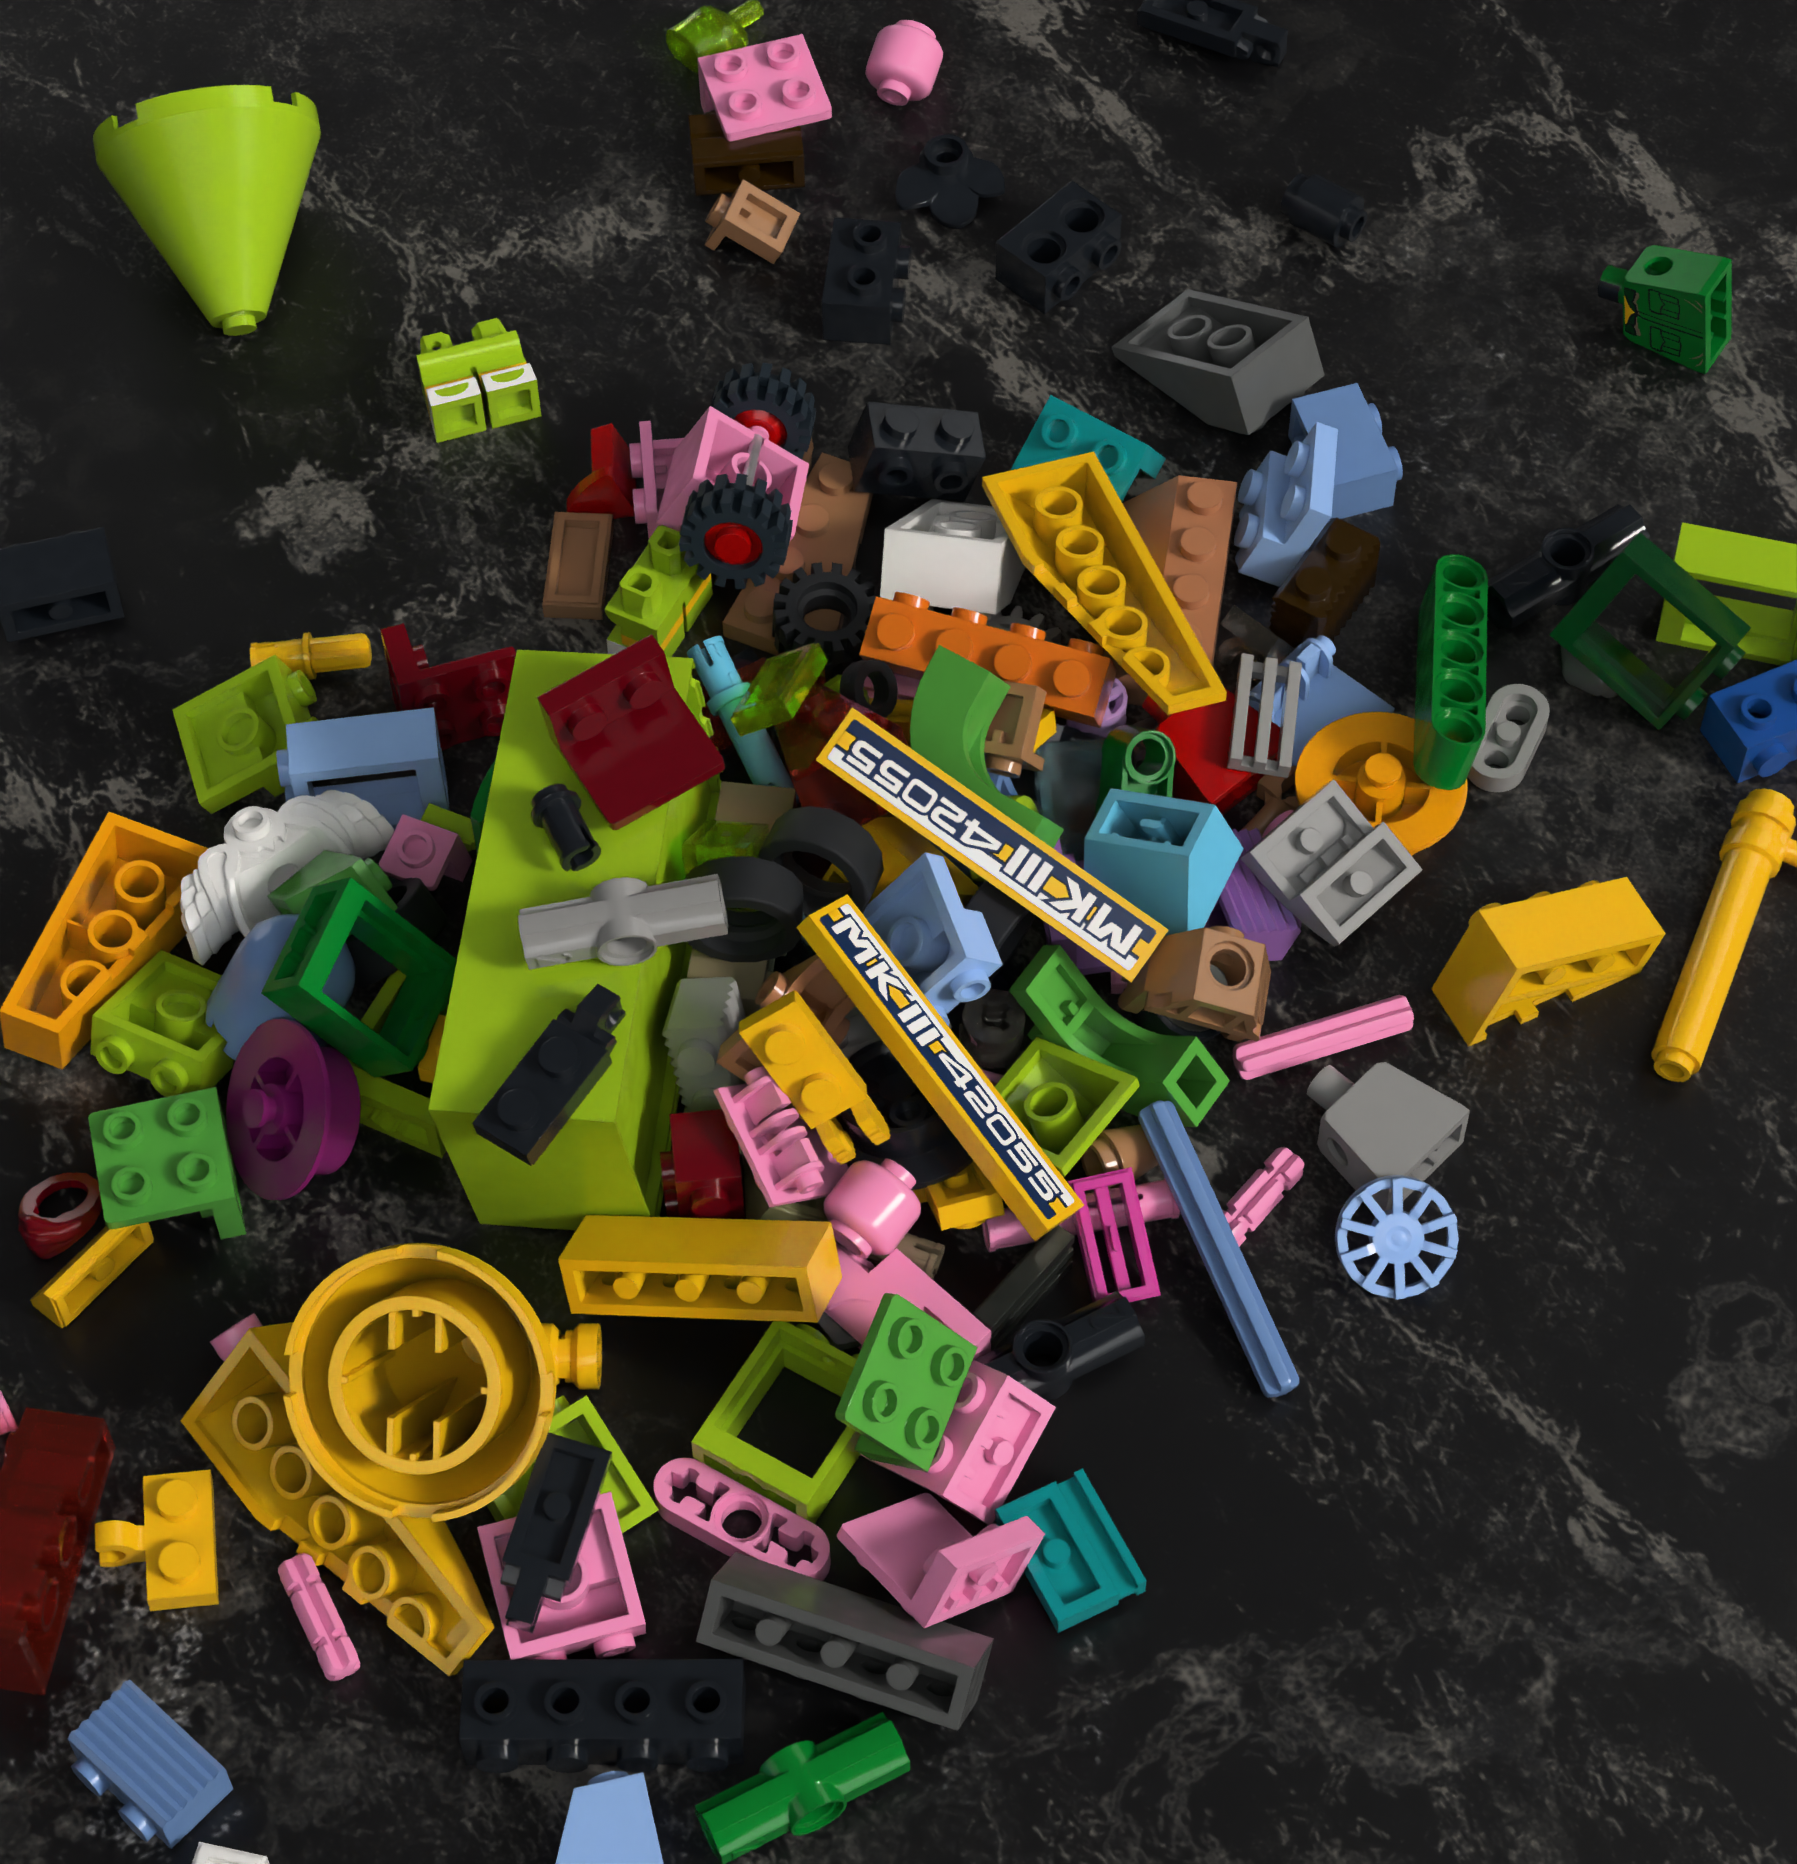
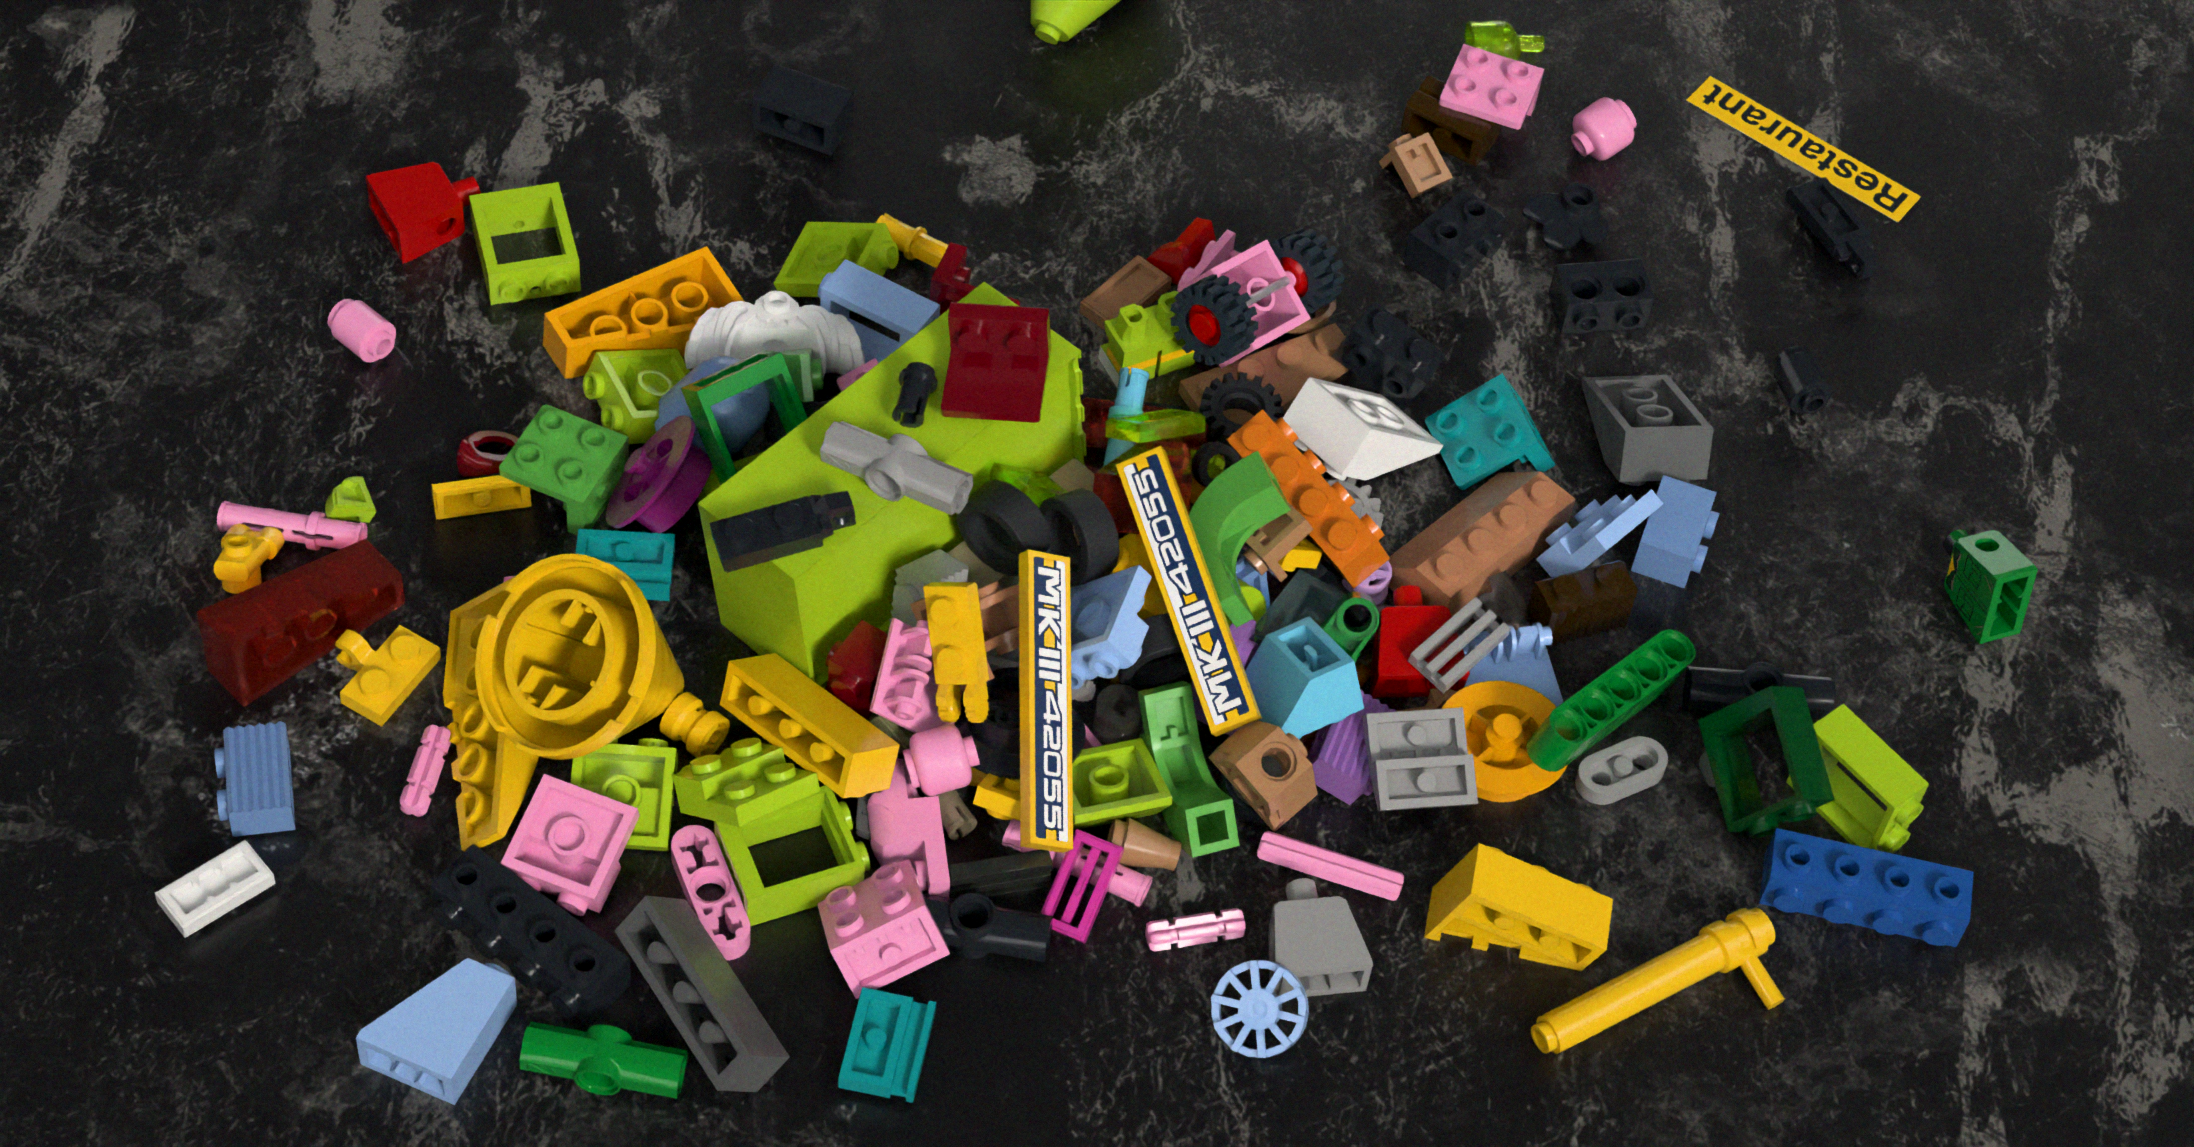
camera: 30 degrees right, 5 degrees down
(323, 1230) = (641, 555): none -> teal plate
(475, 372) = (1157, 150): lime hips -> none
(551, 1525) = (581, 800): black hinge -> none
(688, 1384) = (742, 783): none -> lime plate
(904, 1385) = (854, 861): bright green bracket -> none
(935, 1561) = (799, 987): bright pink bracket -> none
(1097, 566) = (1419, 487): yellow wedge -> none
(1218, 1249) = (1139, 938): medium blue axle -> none

